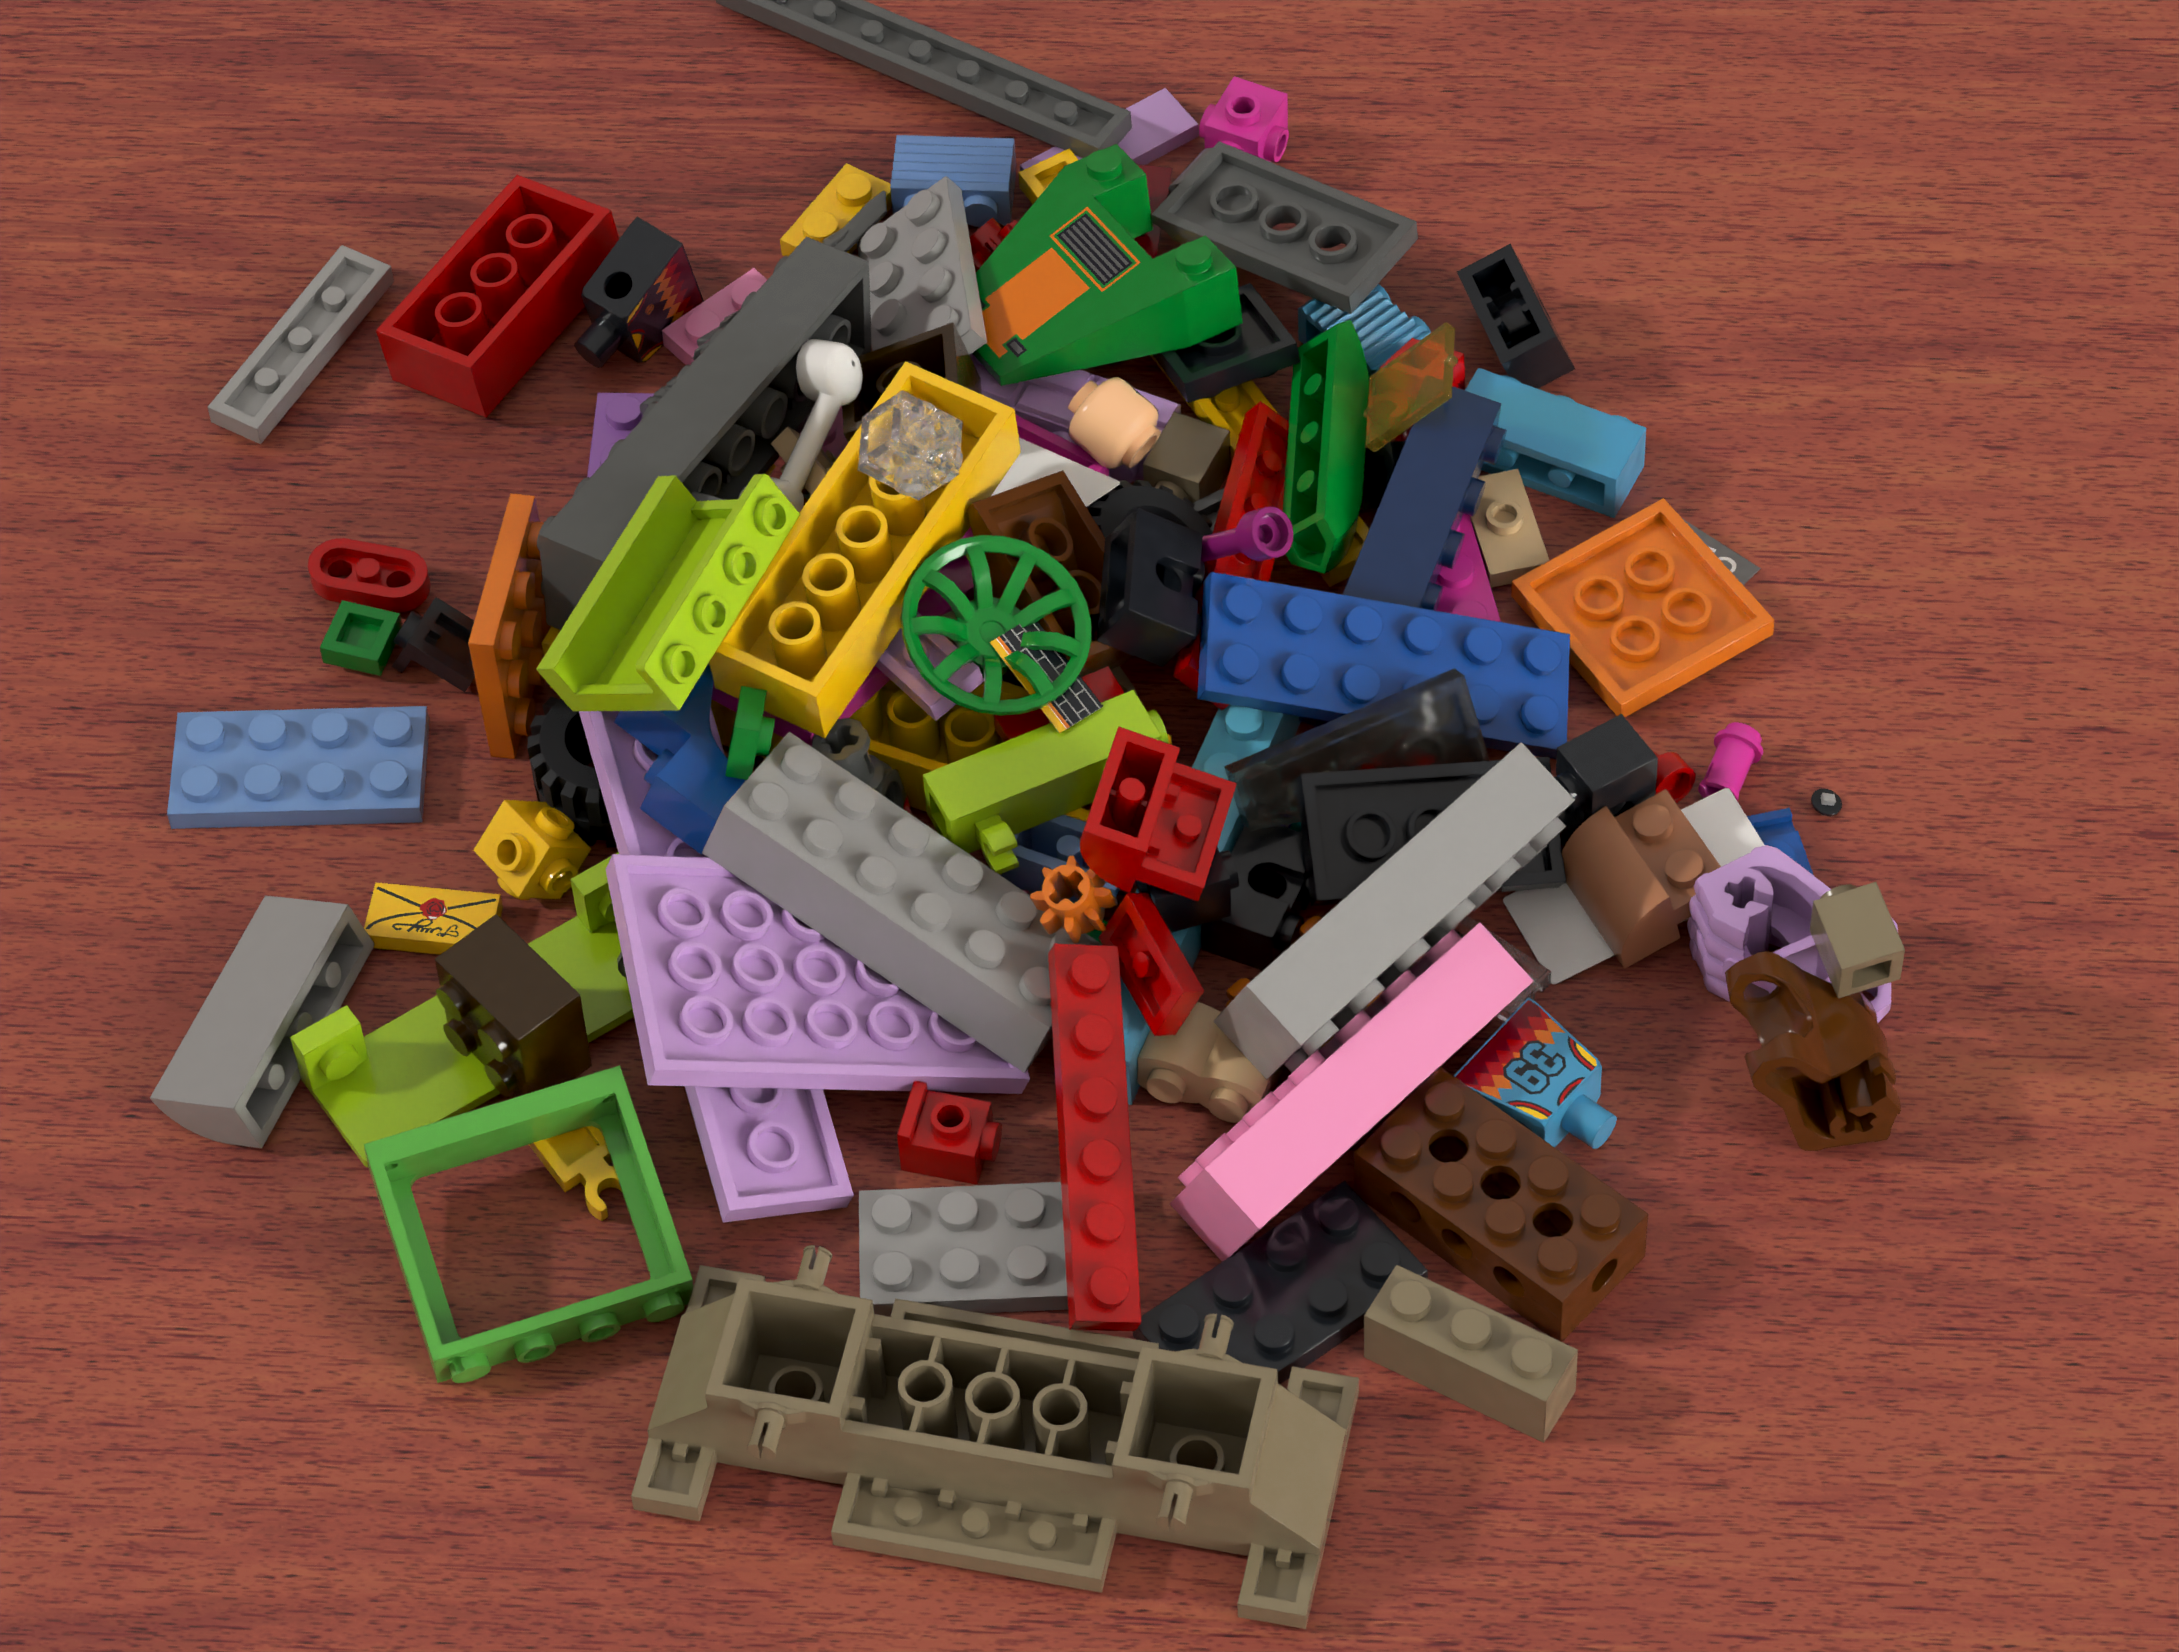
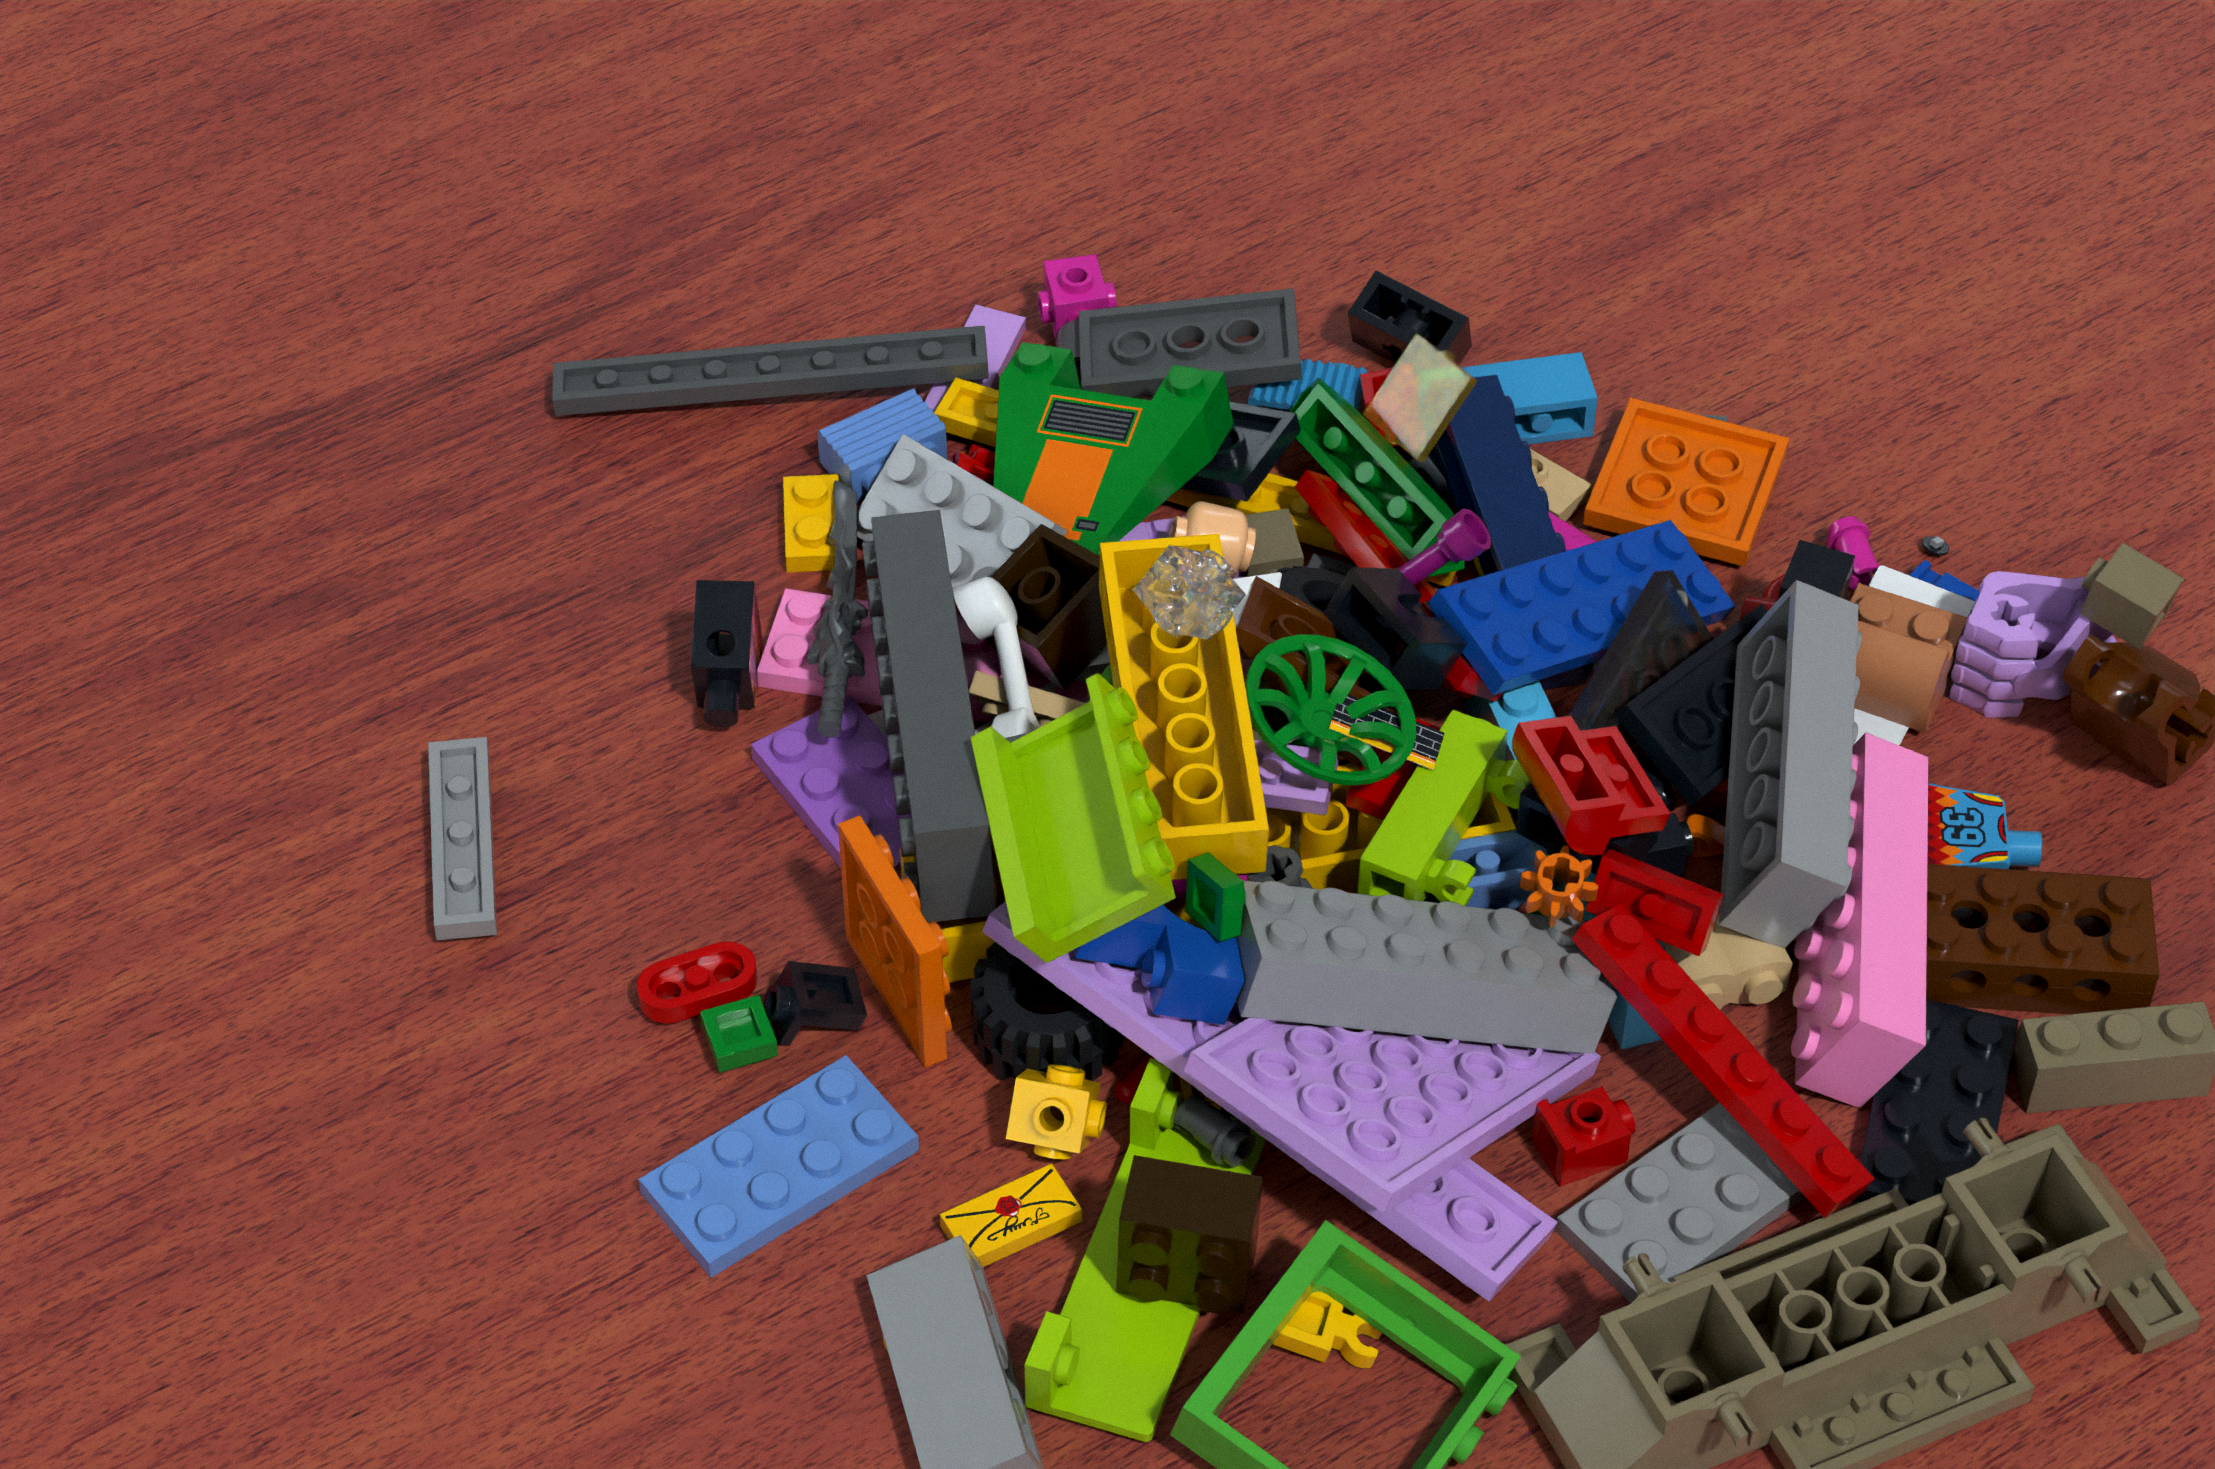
camera: 40 degrees left, 5 degrees down
(498, 296) = (606, 711): red brick -> none

